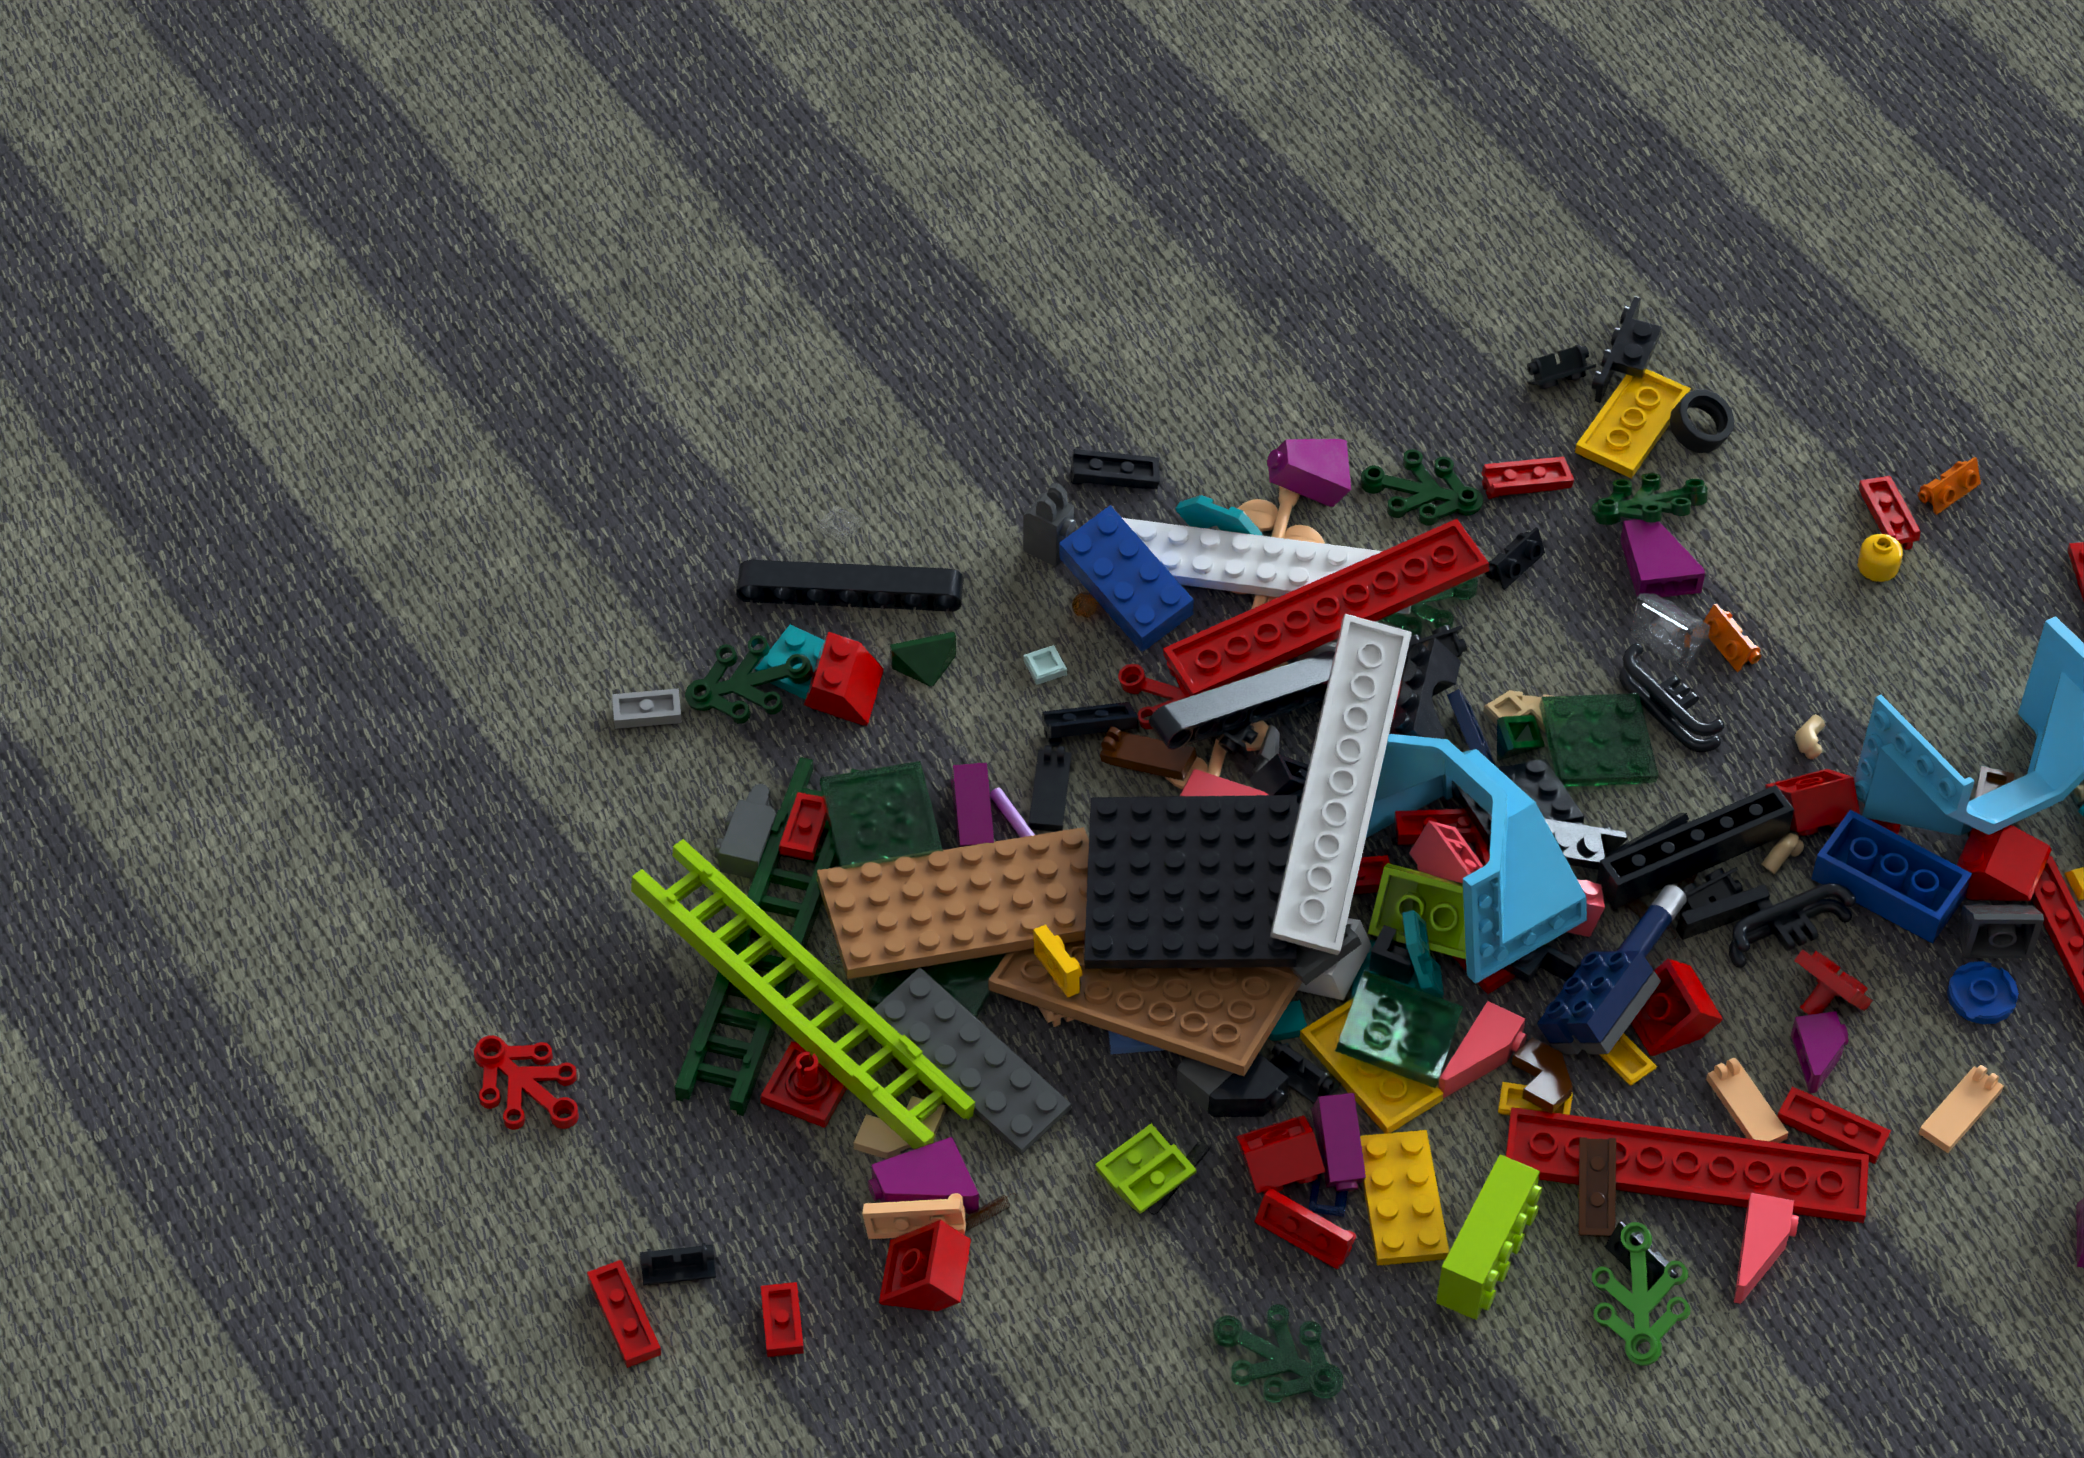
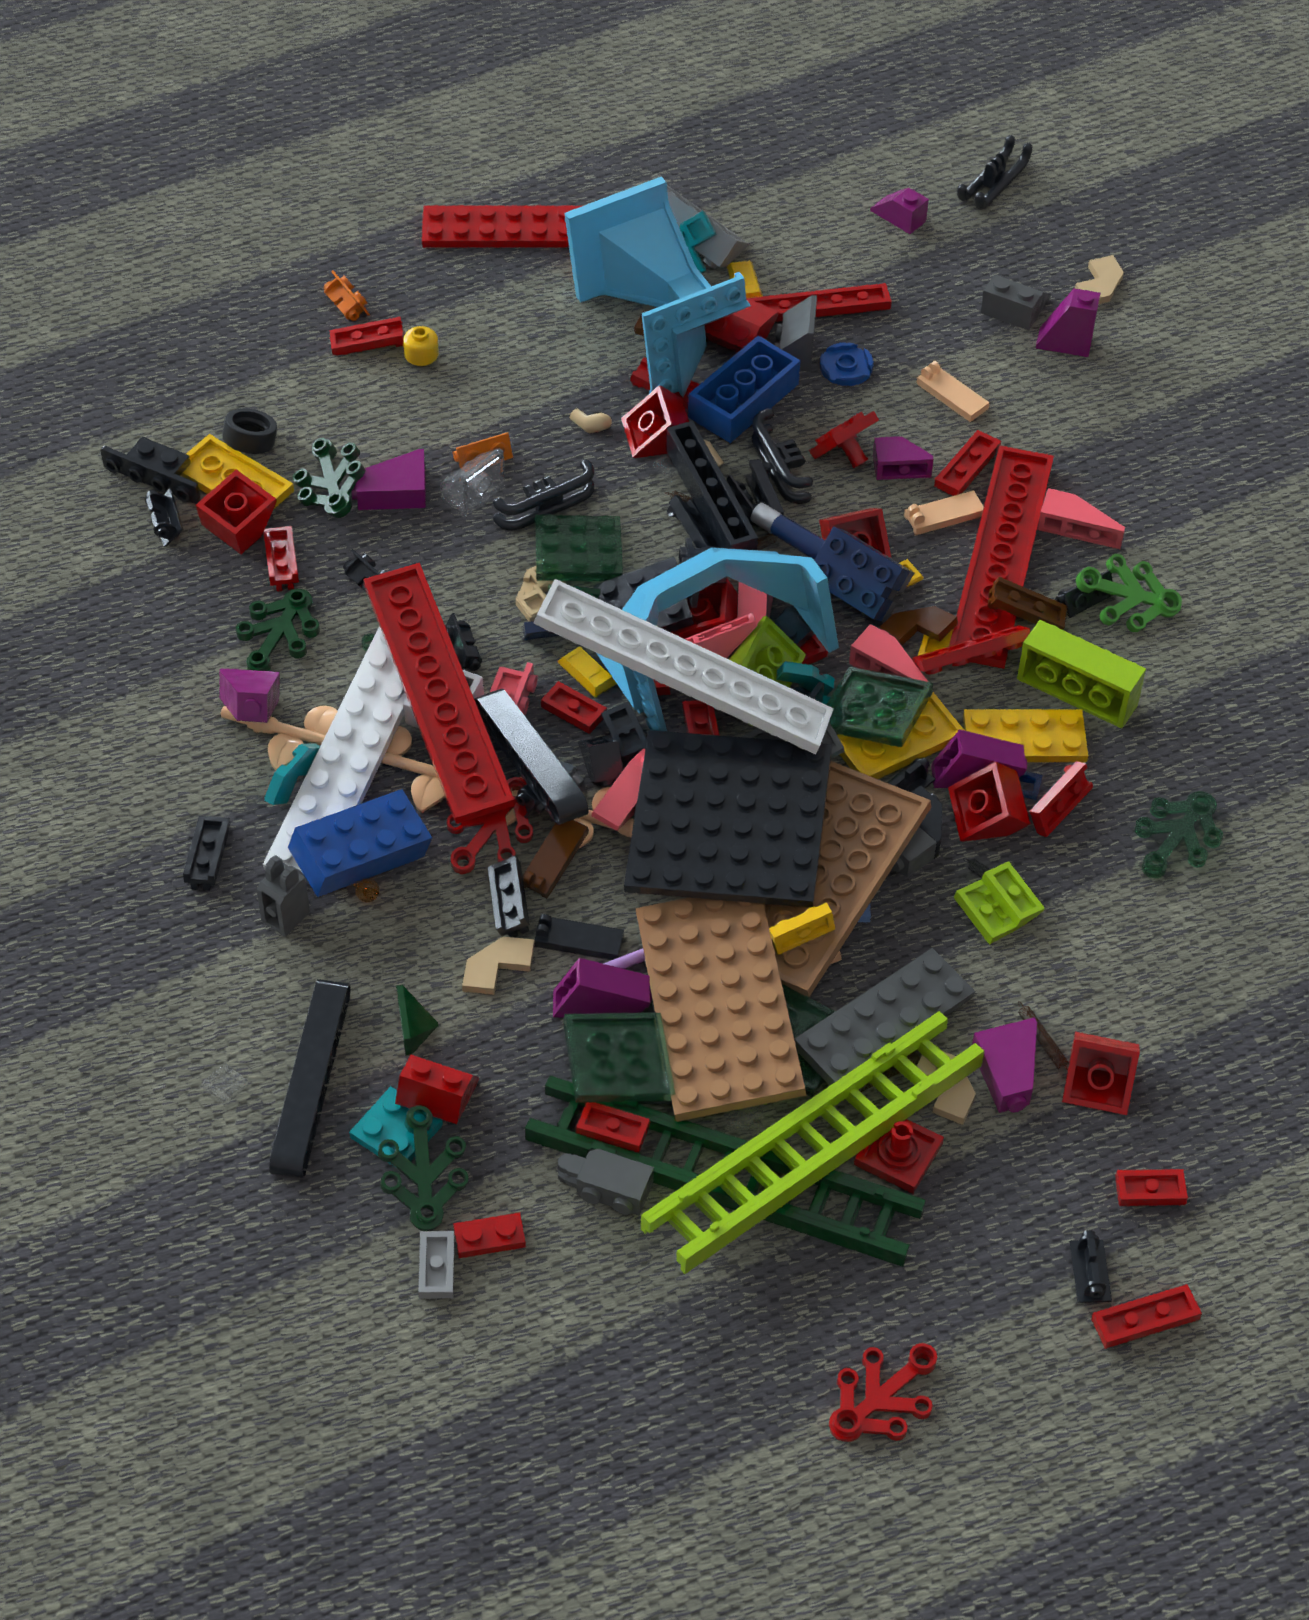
camera: 85 degrees left, 0 degrees up
(685, 749) = (489, 1235): none -> red plate
(898, 1218) = (1054, 1041): light nougat hinge -> none
(1004, 713) = (504, 953): none -> tan tile
(1045, 664) = (430, 929): light aqua tile -> none
(1428, 672) = (524, 647): black arch -> none
(1502, 1117) = (982, 646): none -> red plate
(1567, 420) = (236, 511): none -> red slope

